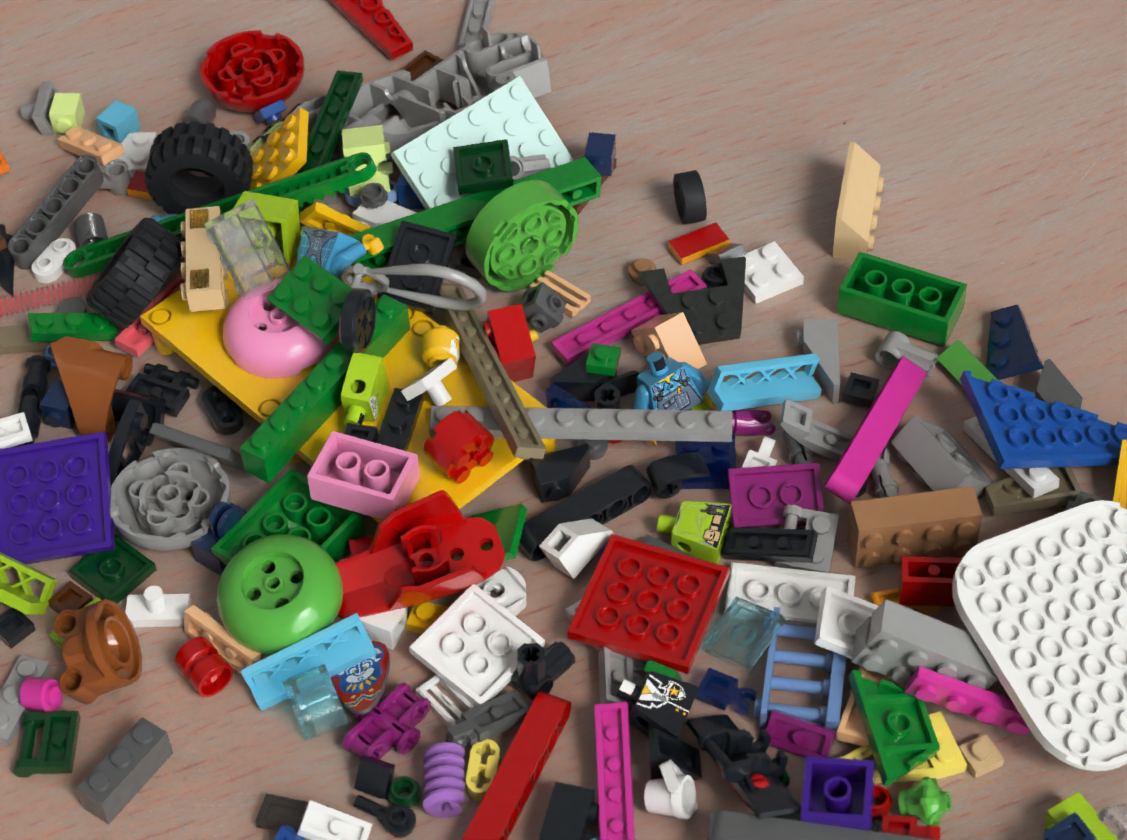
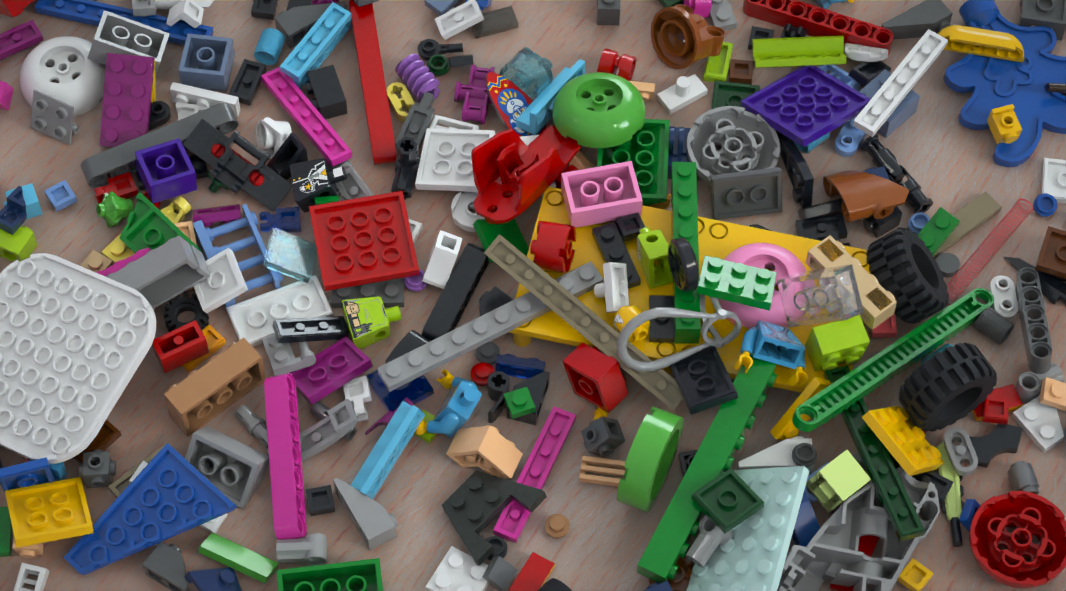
camera: 145 degrees right, 10 degrees up
(403, 349) = (661, 328): none -> black plate

